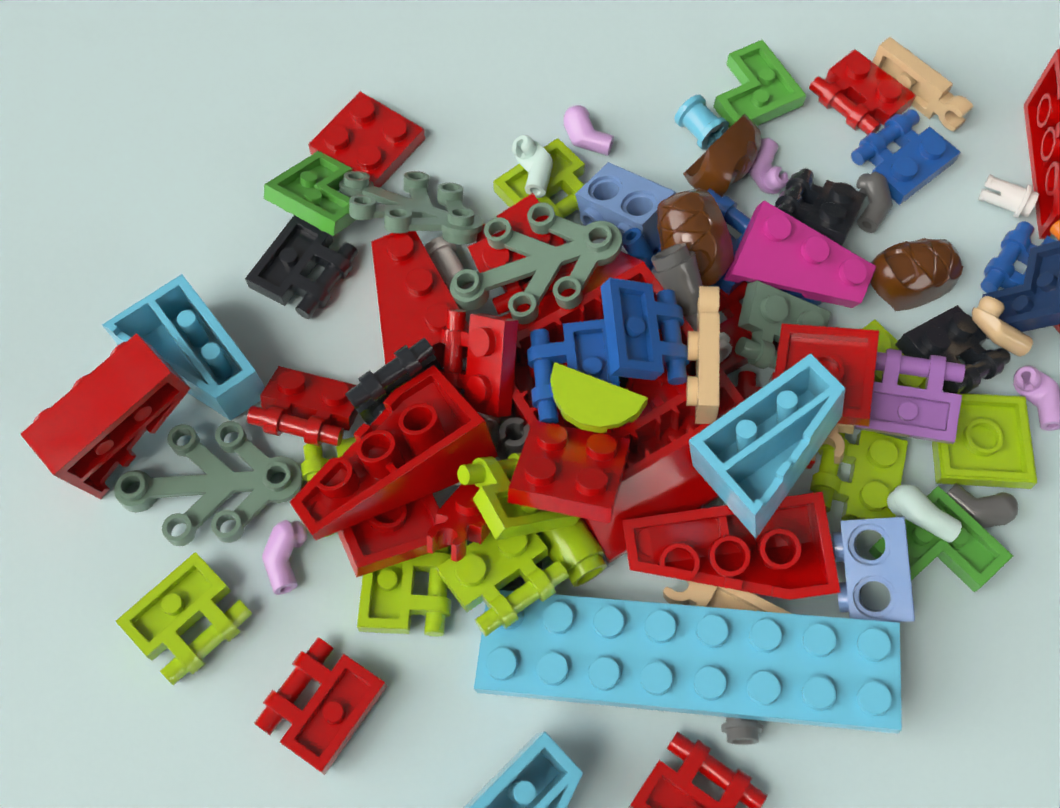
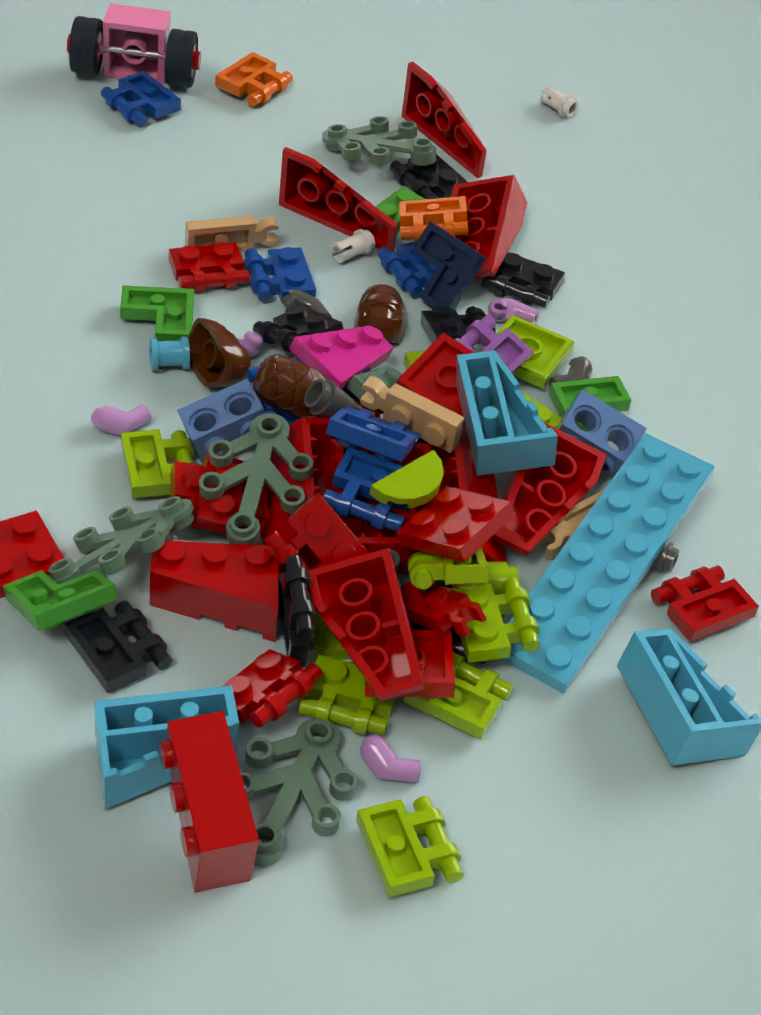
camera: 70 degrees left, 20 degrees down
(333, 711) = (540, 772): red plate -> none
(535, 162) = (143, 449): light aqua arm -> none
(918, 509) = (565, 393): light aqua arm -> none
(999, 332) = (457, 297): tan arm -> none

